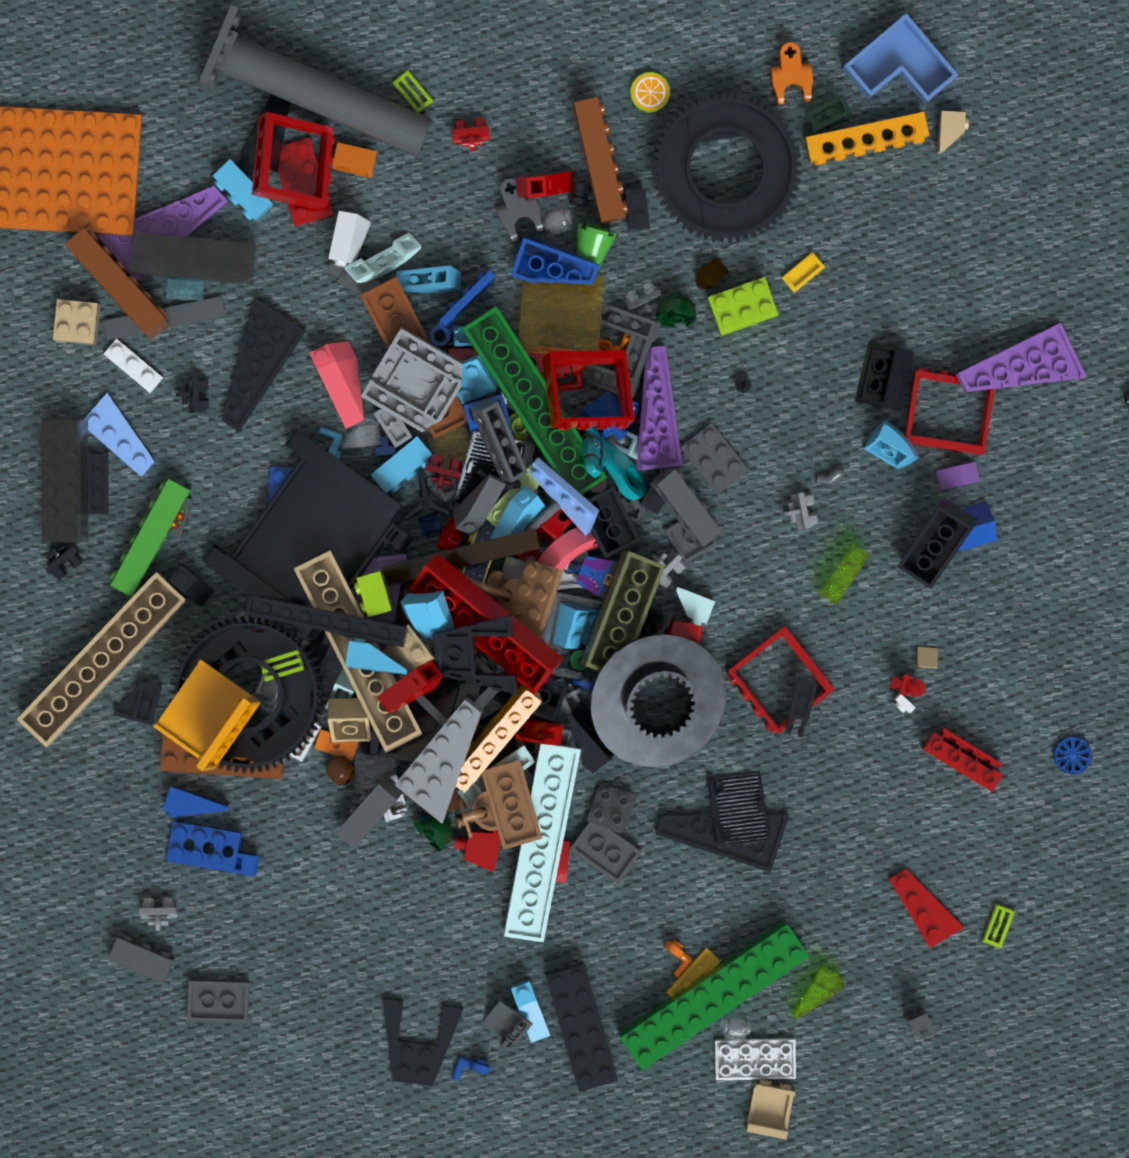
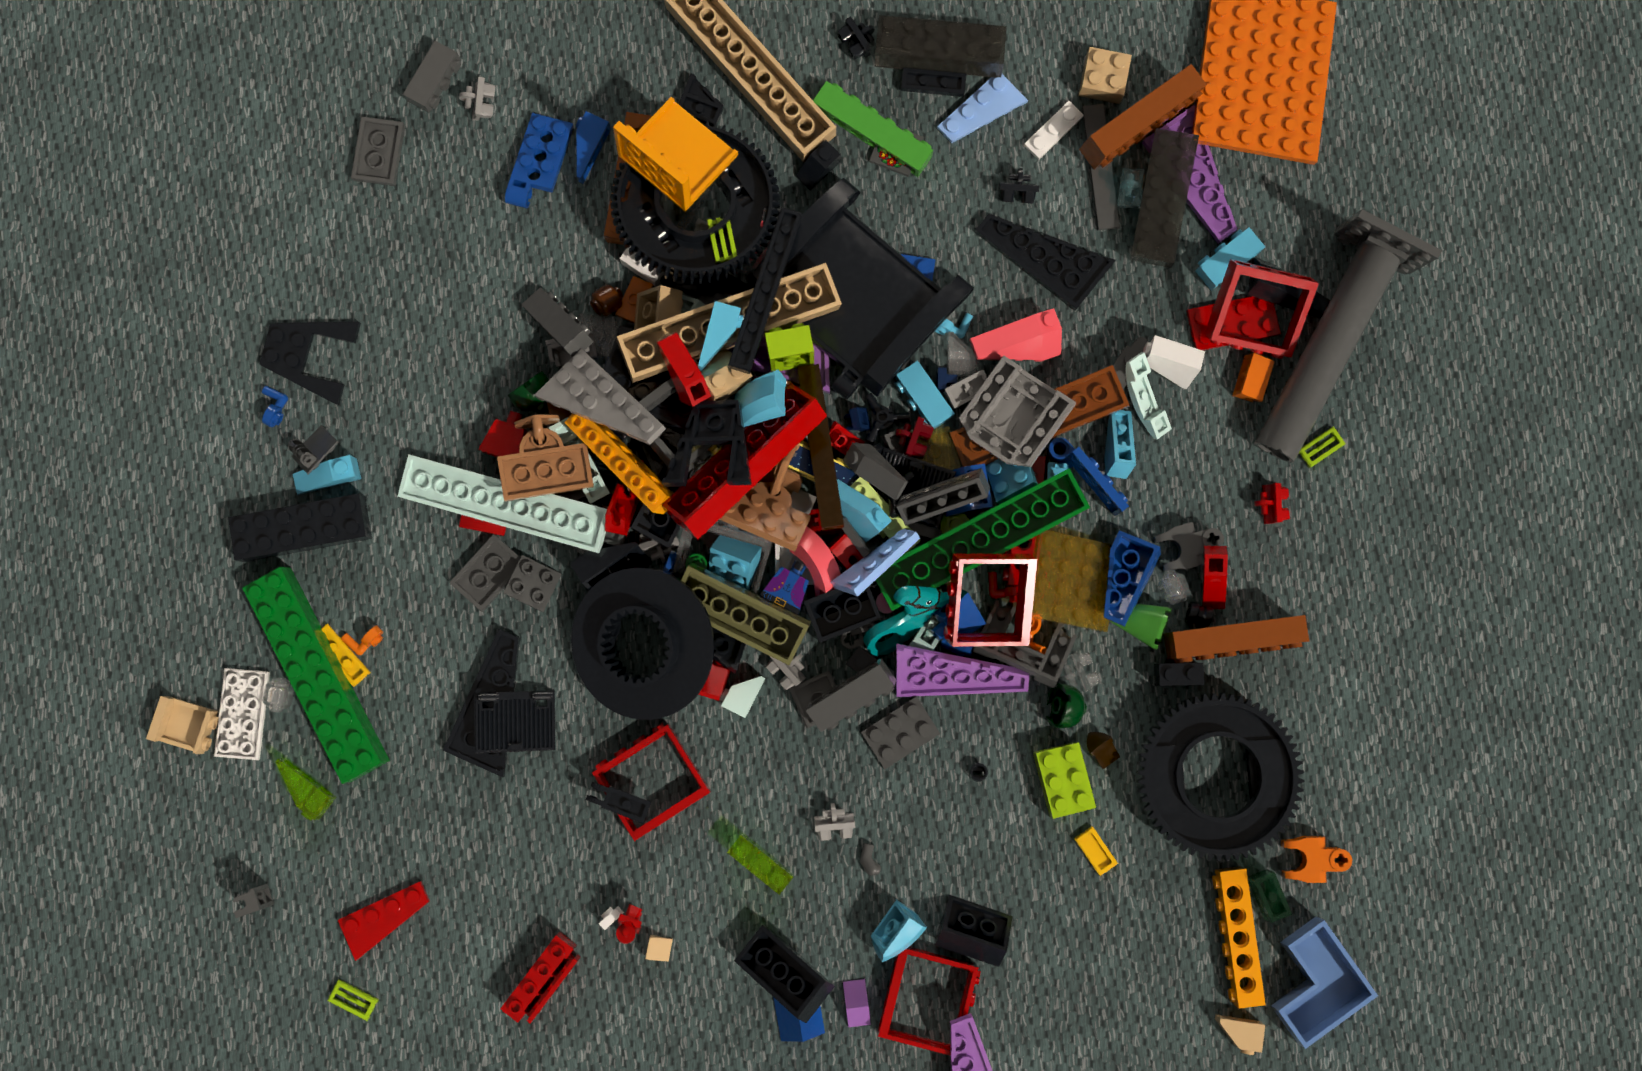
camera: 90 degrees right, 5 degrees down
(650, 92) = (1304, 701): light orange tile -> none

